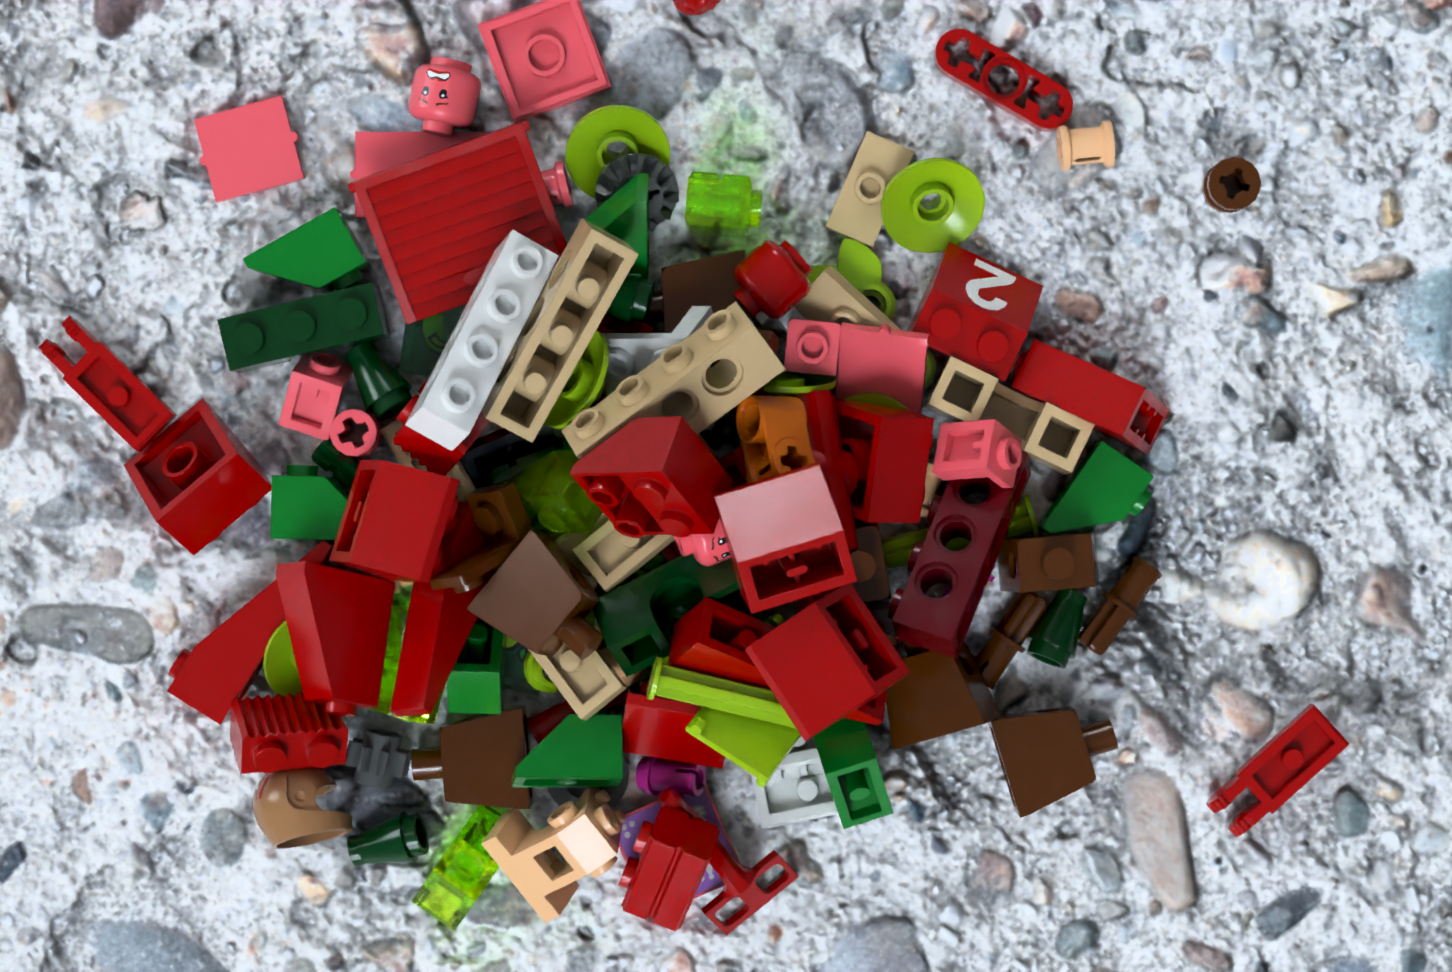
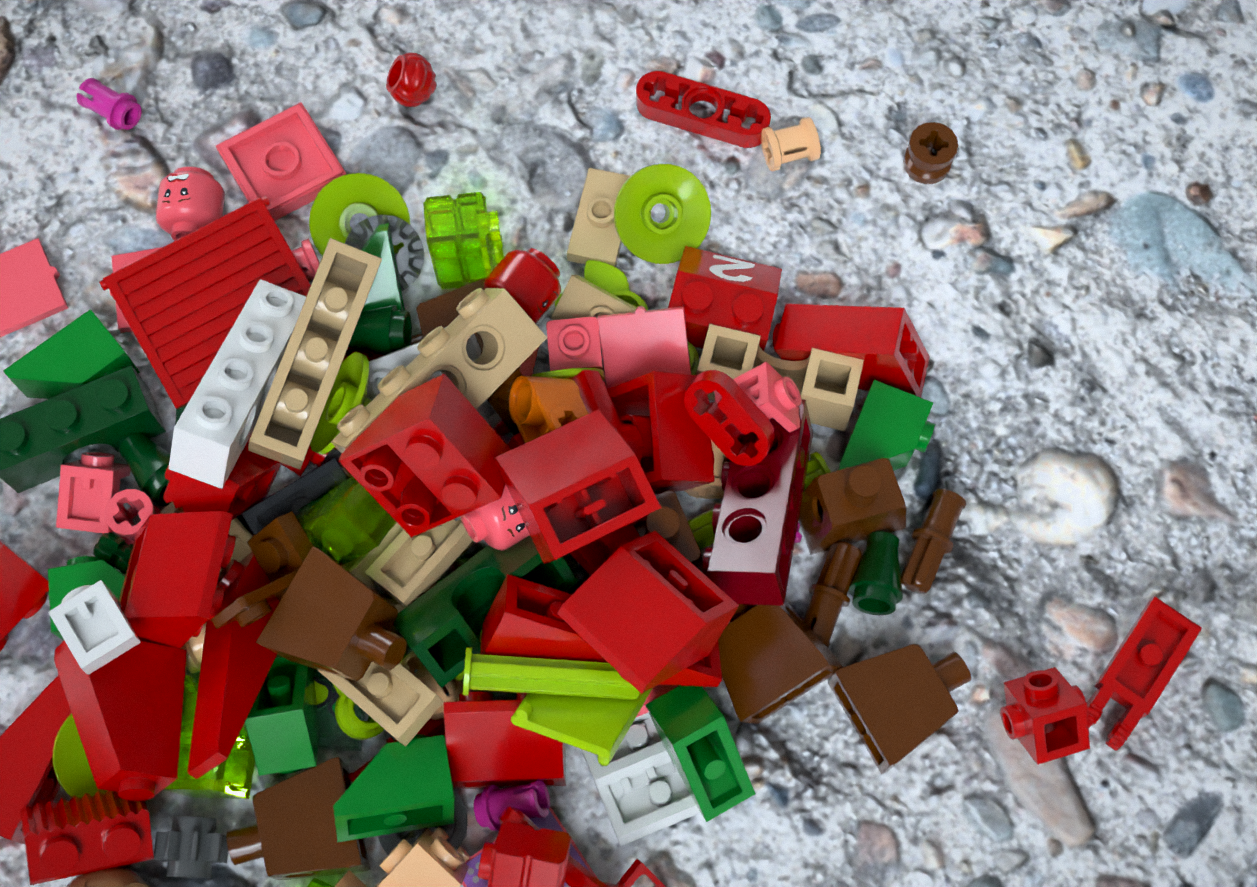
camera: 10 degrees left, 20 degrees down
(323, 567) = (93, 626): none -> white bracket
(945, 473) = (729, 418): none -> red beam
(1176, 797) = (1046, 715): none -> red brick

